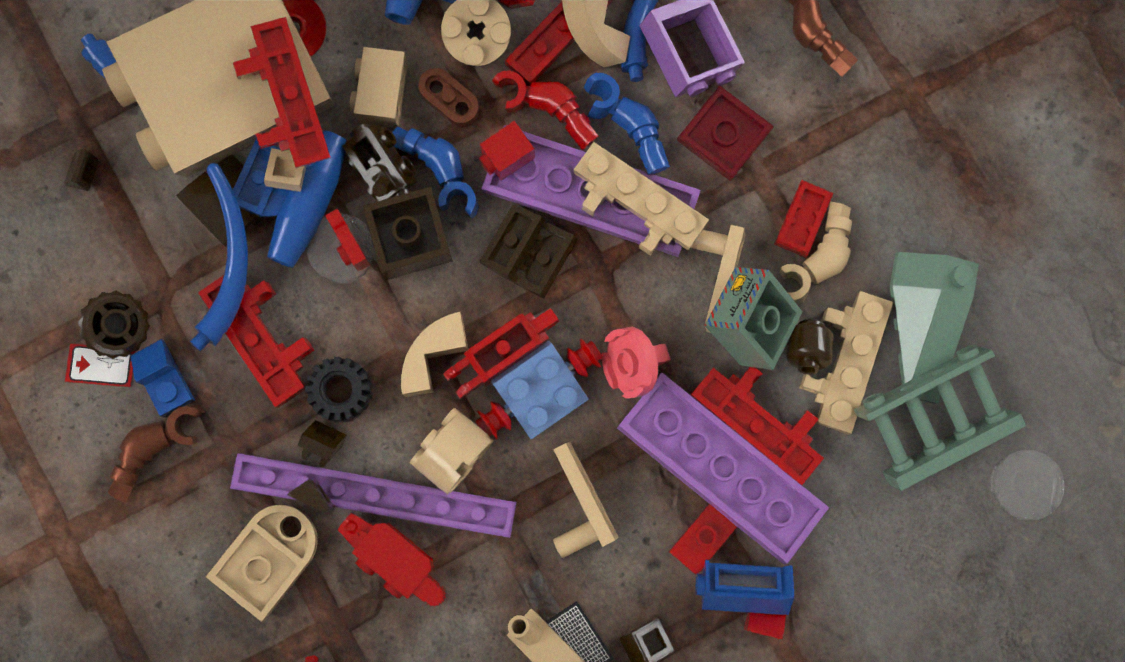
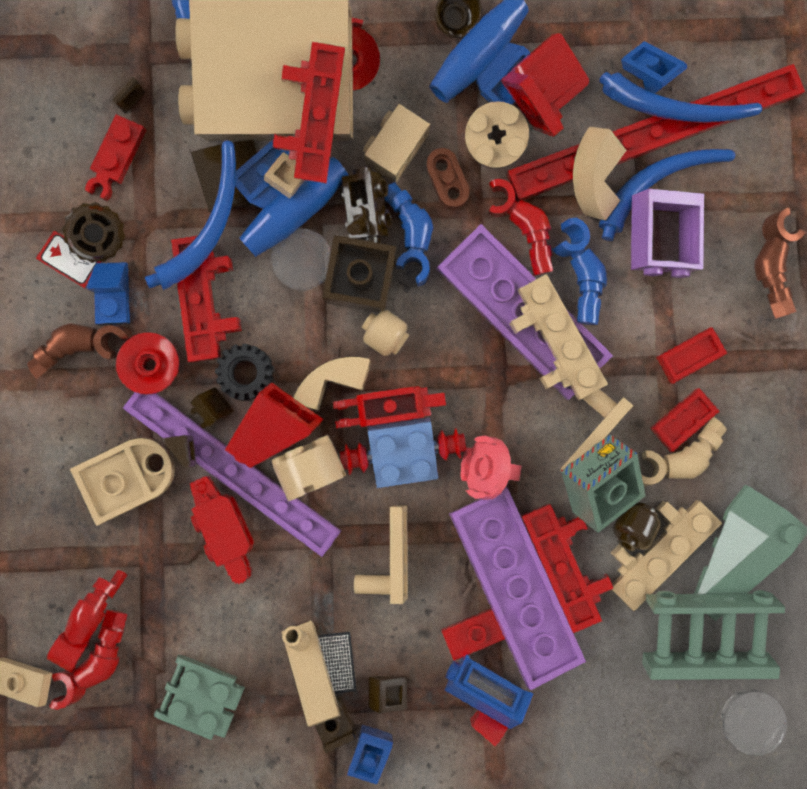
camera: 25 degrees right, 5 degrees up
(98, 236) = (115, 155): none -> red plate
(220, 419) = (133, 358): none -> red dish
(349, 249) = (307, 265): red plate -> none
(391, 429) = (271, 426): none -> red slope
(462, 279) = (385, 332): none -> tan head
(506, 151) = (471, 247): red brick -> none
(528, 250) = (450, 335): dark brown slope -> none
(725, 133) = (656, 318): dark red plate -> none
(778, 152) = (691, 355): none -> red tile

